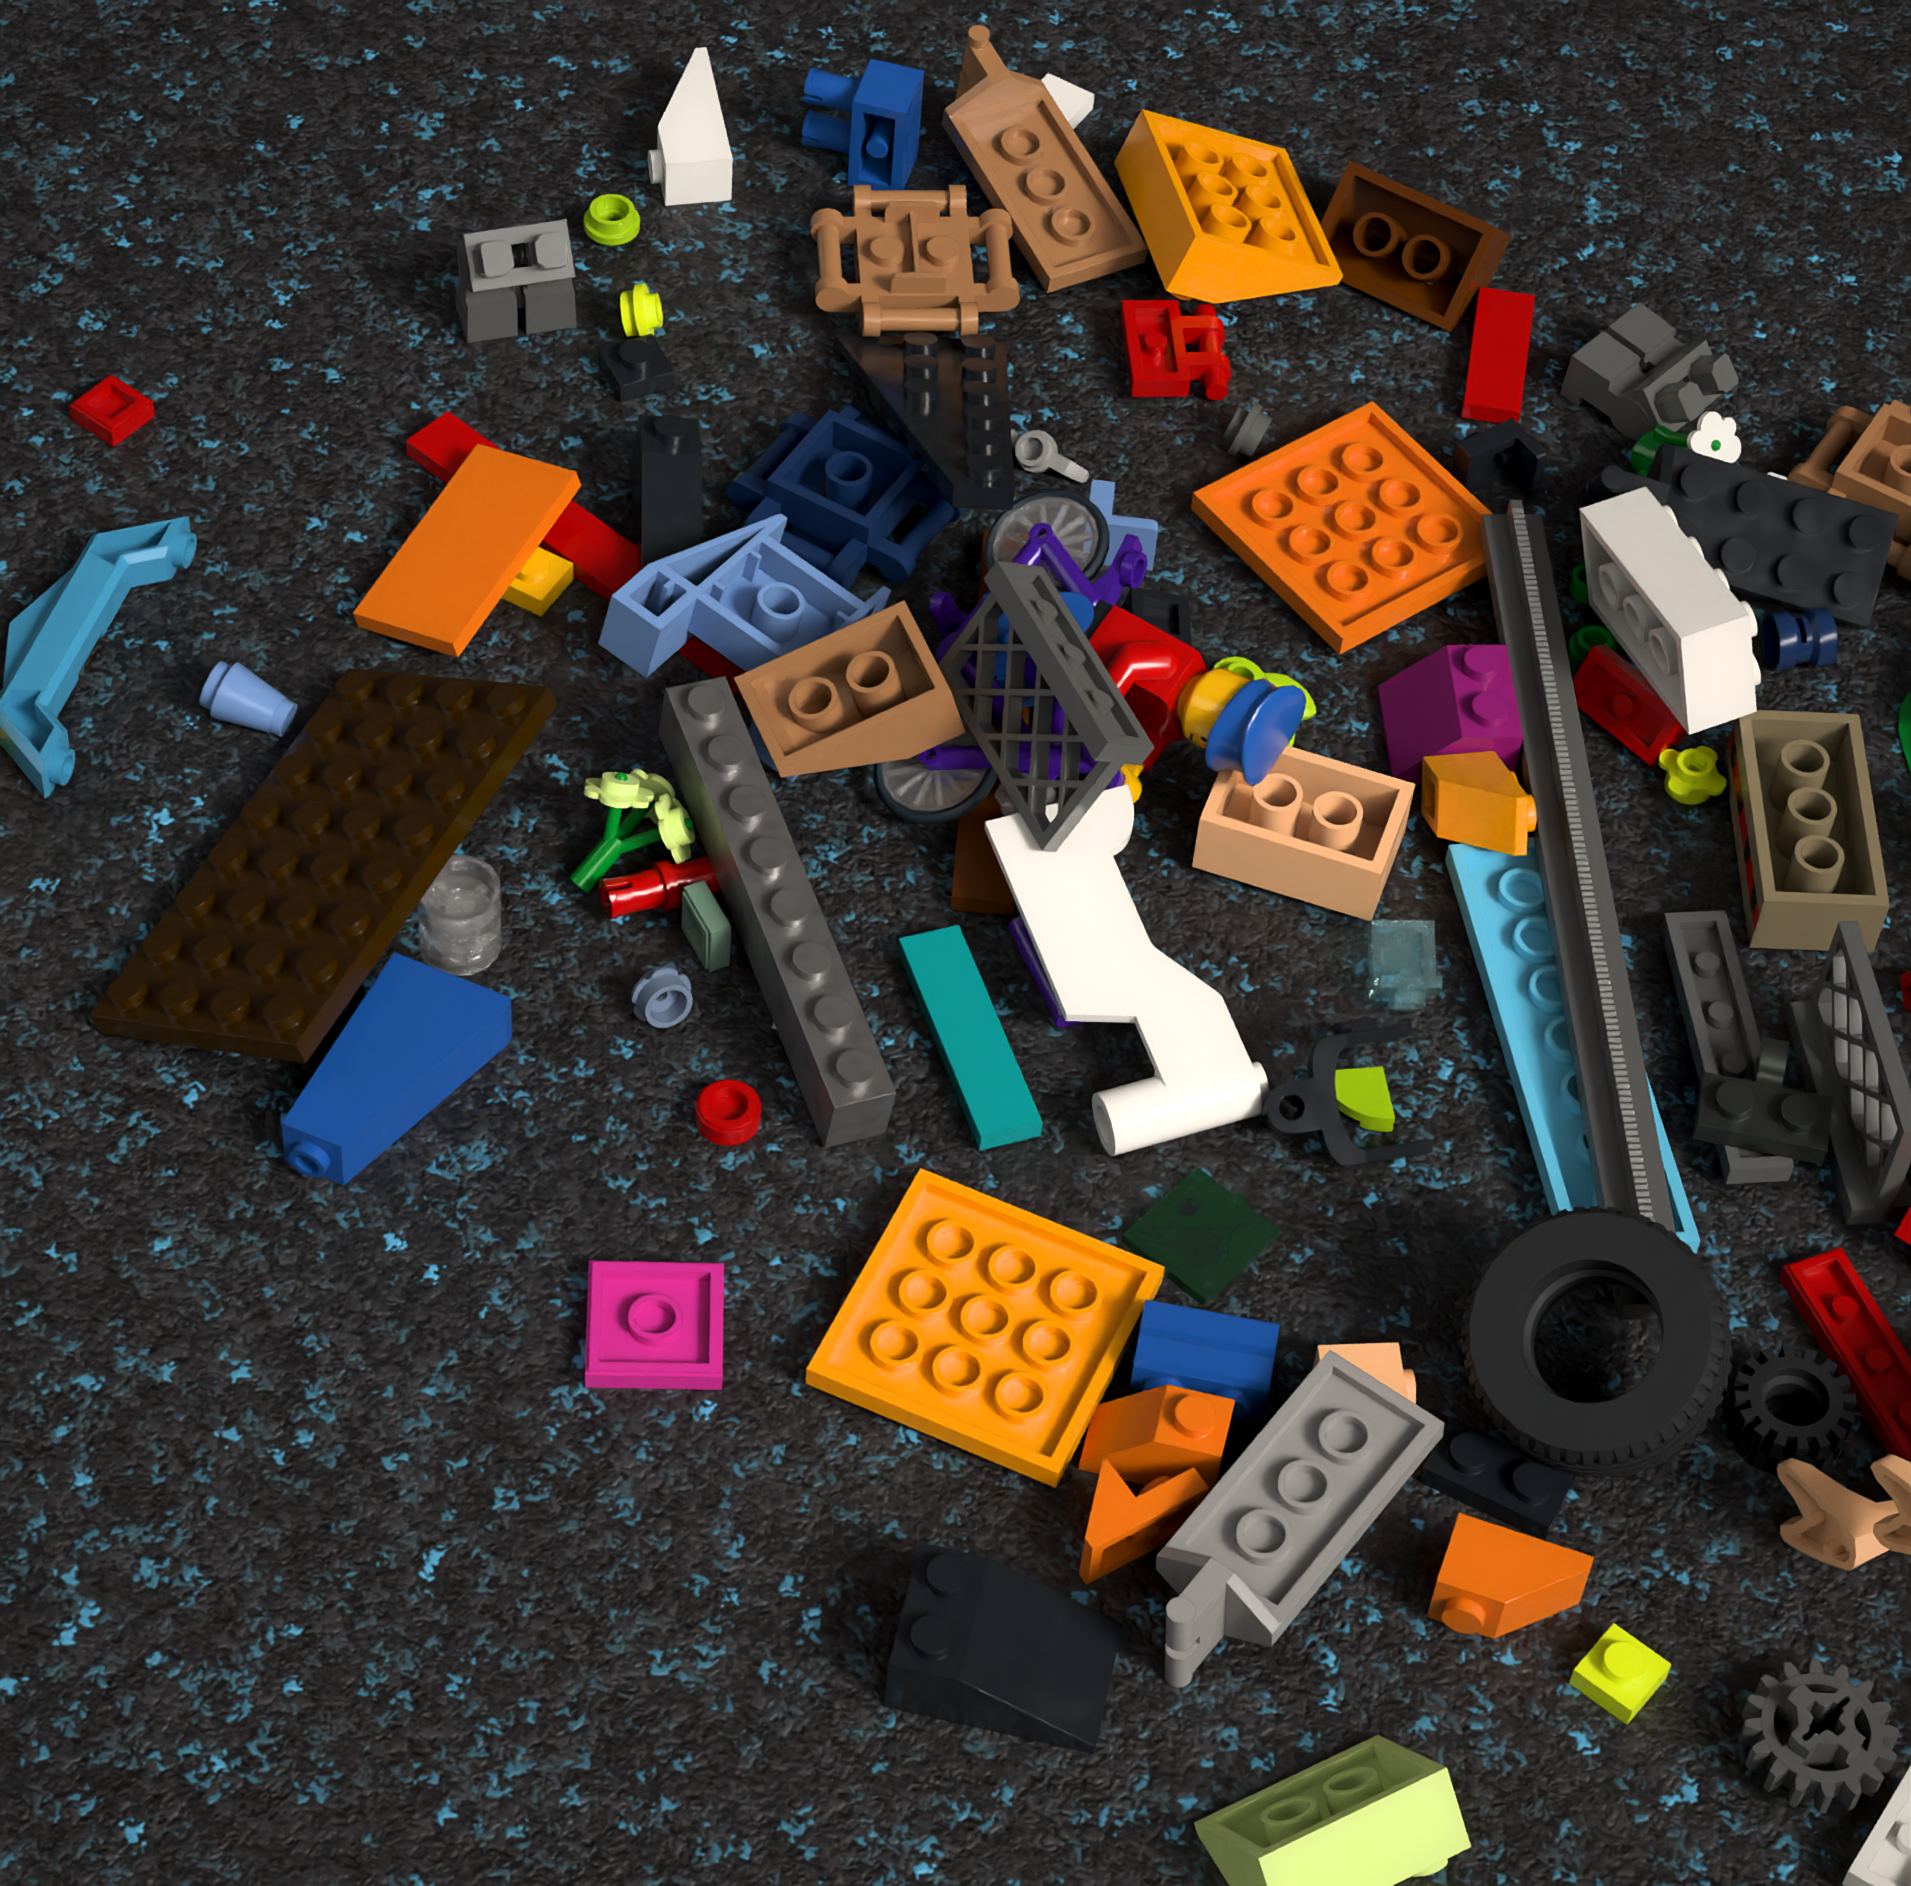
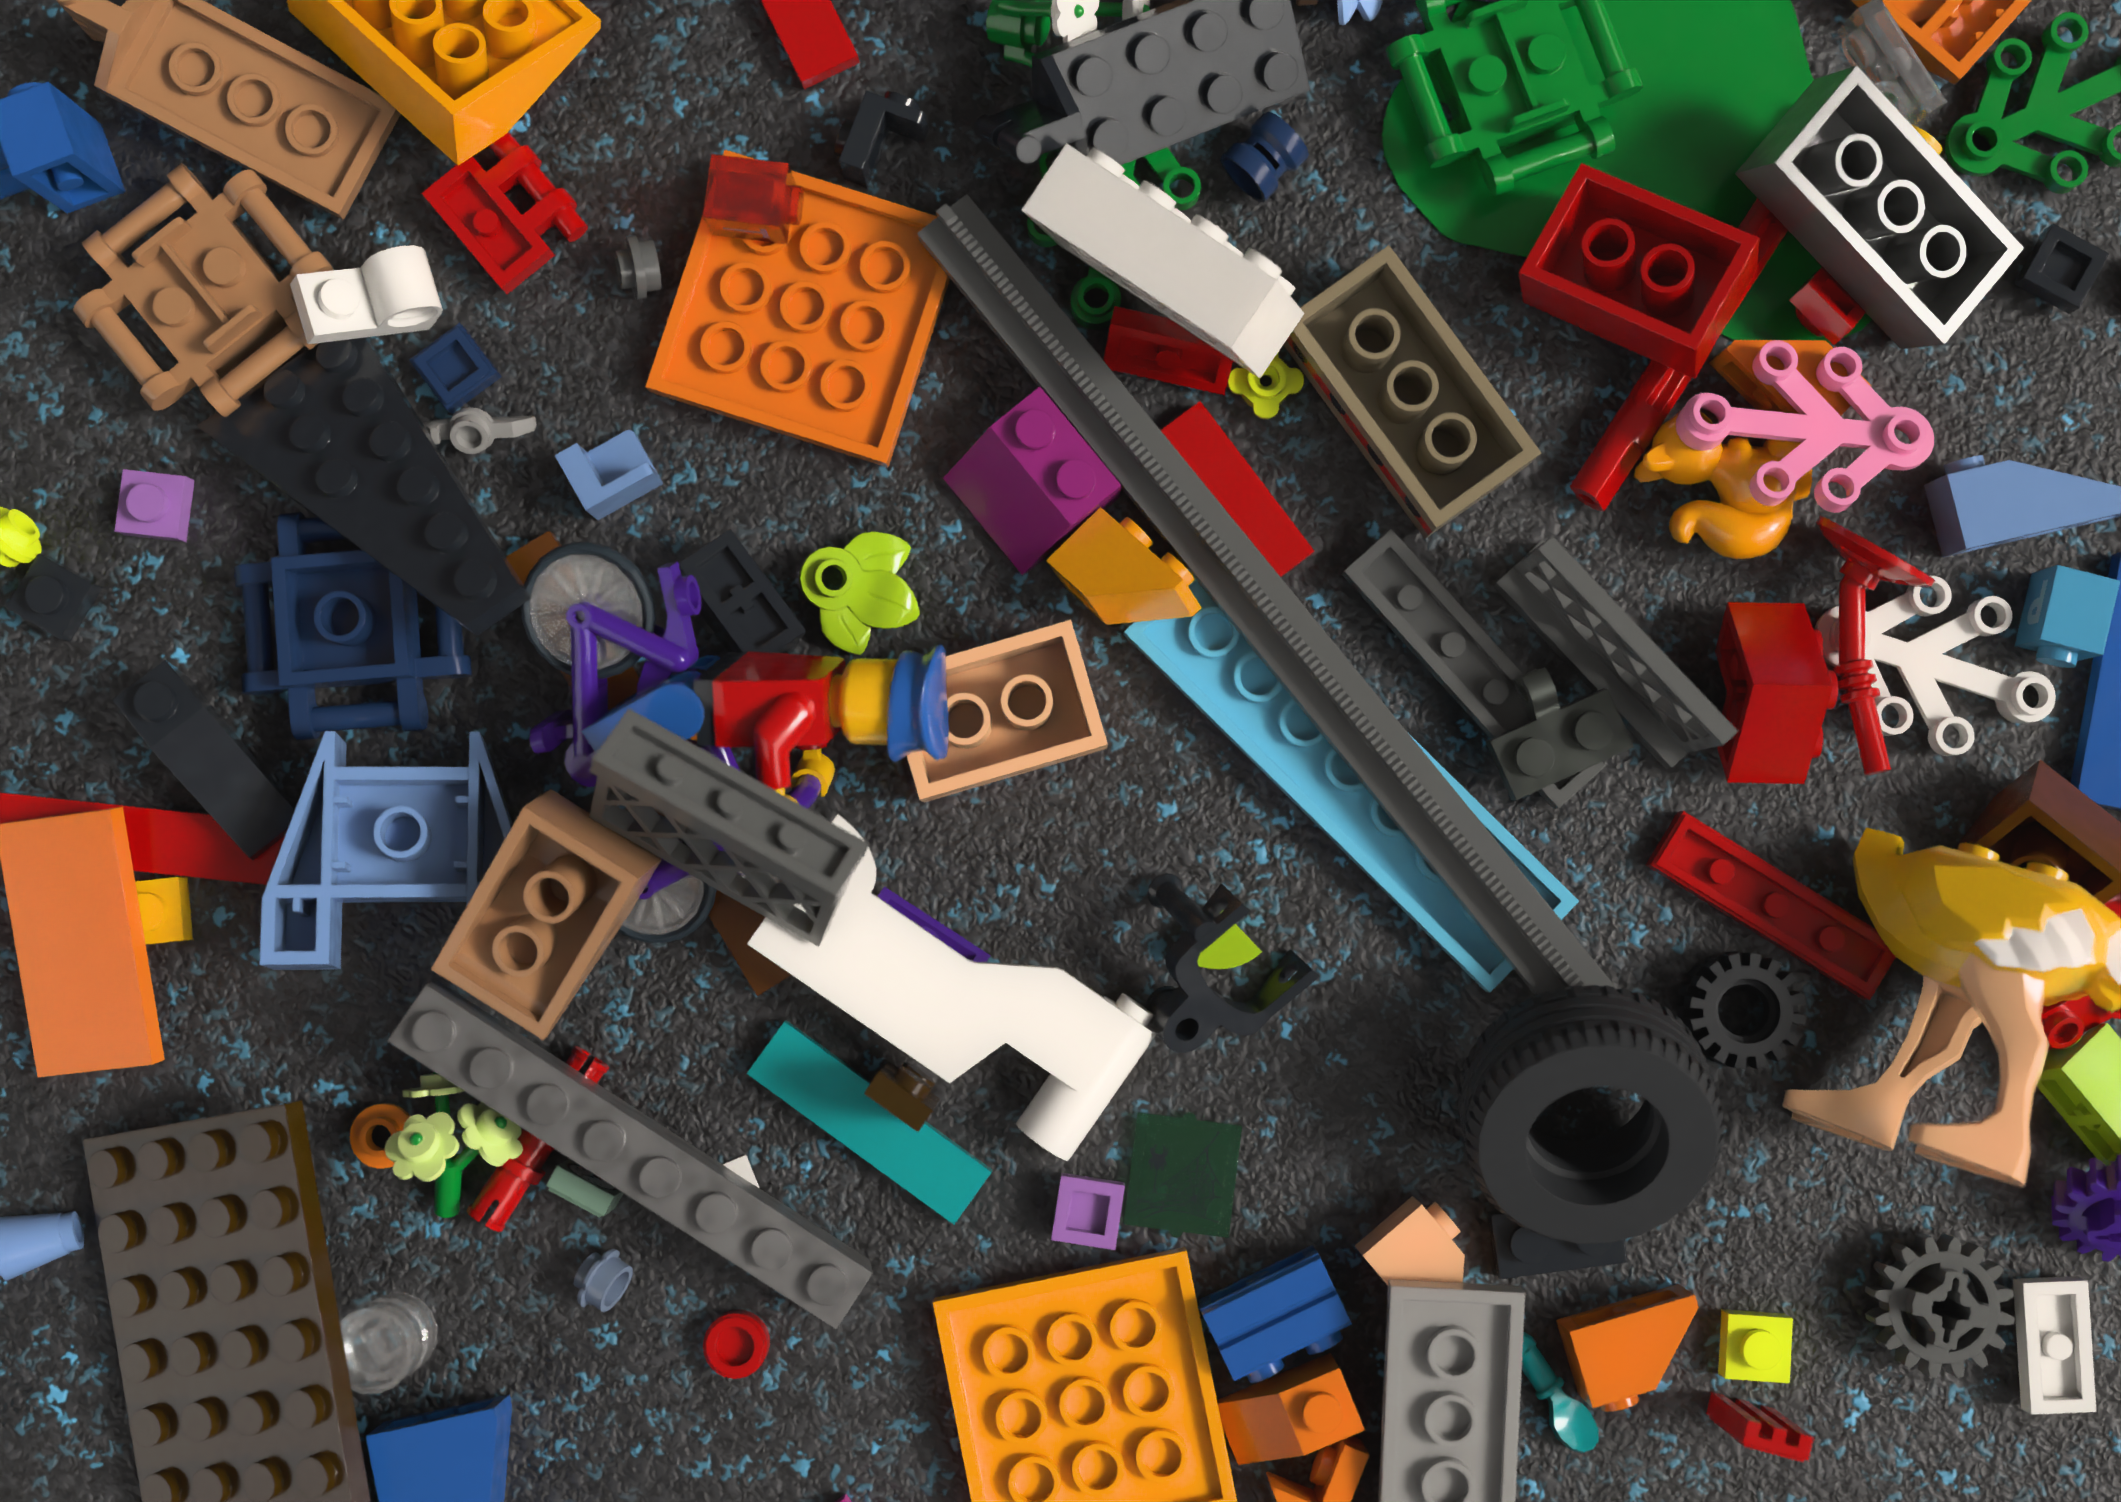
camera: 30 degrees left, 35 degrees up
(571, 810) = (361, 1140): none -> orange plate
(758, 361) = (154, 505): none -> medium lavender plate
(1021, 1000) = (904, 1093): none -> dark brown plate
(1044, 337) = (383, 297): none -> white plate
(1056, 413) = (455, 368): none -> dark blue tile
(1101, 1197) = (1088, 1211): none -> medium lavender plate
(1370, 423) = (751, 199): none -> clear red brick
(1402, 963) = (1169, 789): clear light blue bracket -> none
(1405, 1617) = (1567, 1417): none -> teal piece
(1591, 1698) = (1760, 1428): none -> red tile
(1619, 826) = (1237, 488): none -> red tile

